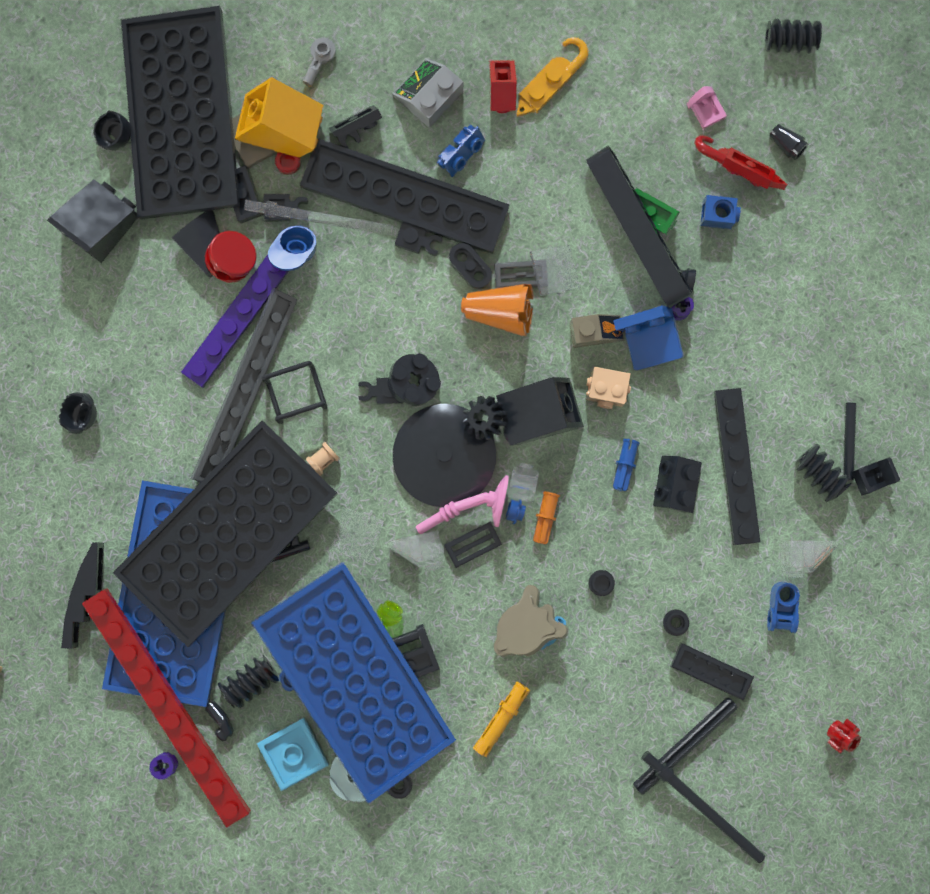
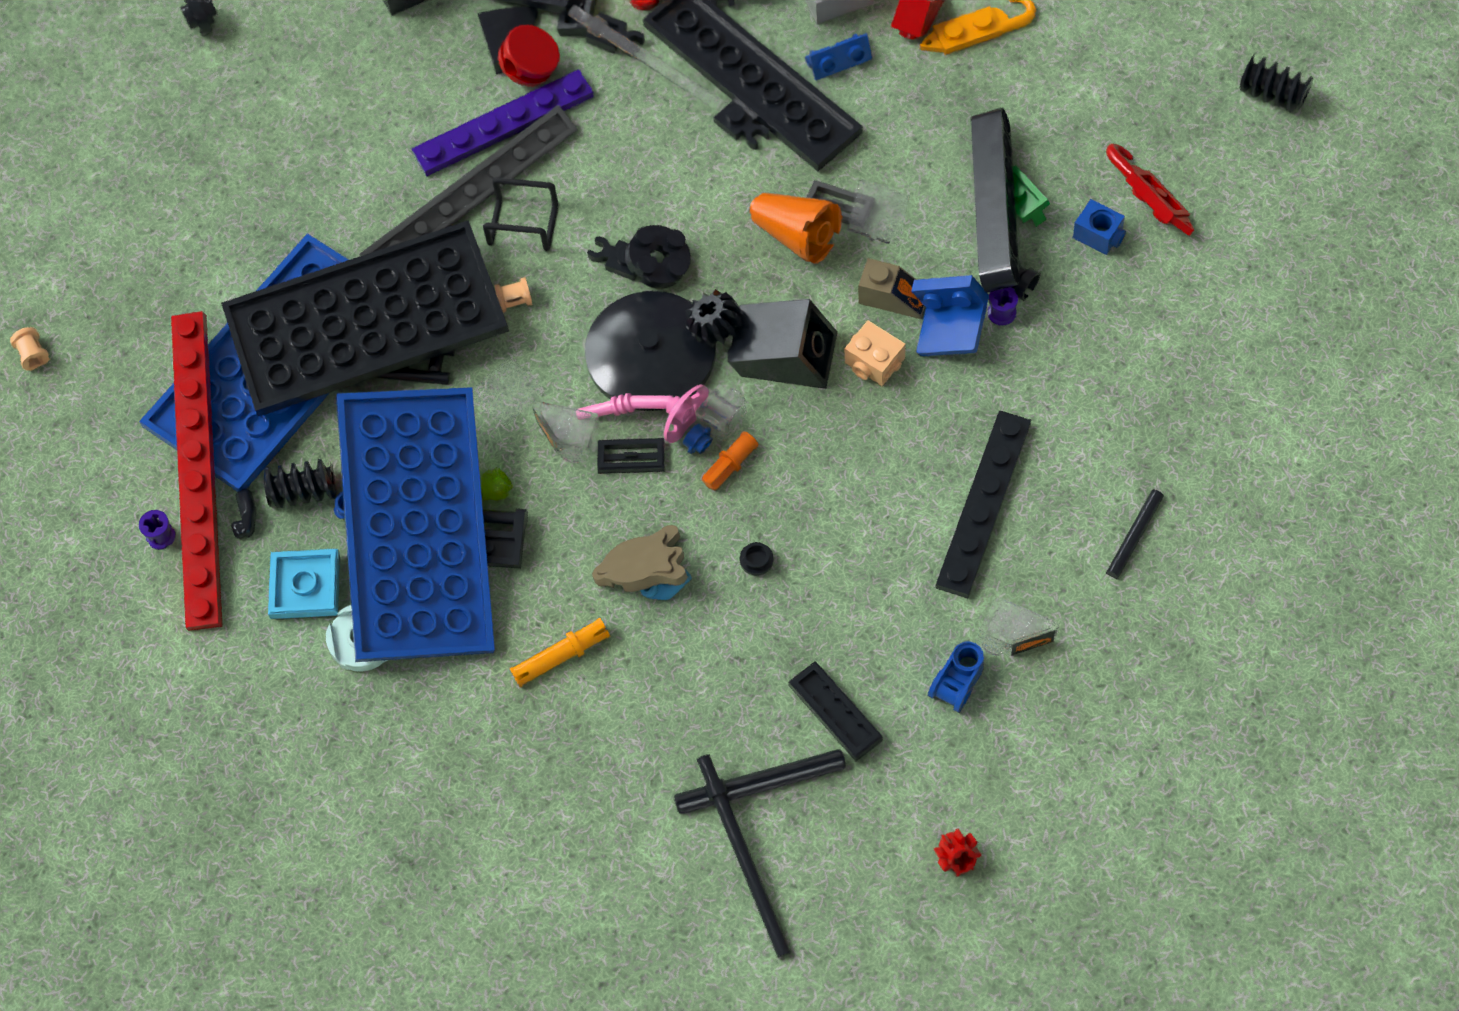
camera: 35 degrees right, 20 degrees down
(77, 413) = (280, 142): black hair -> none
(87, 584) = (157, 335): black slope -> none
(292, 248) = (601, 72): cap -> none
(402, 793) = (405, 682): black plate -> none
(472, 265) = (785, 173): black plate -> none
(625, 465) = (852, 444): blue axle -> none
(677, 483) = (903, 489): black bracket -> none
(684, 622) = (818, 630): black plate -> none
(706, 107) = (1141, 118): bright pink tile -> none
(788, 141) = (1220, 190): black cone -> none
(822, 473) = (1078, 551): black piece -> none
(875, 476) = (1144, 580): black bracket -> none

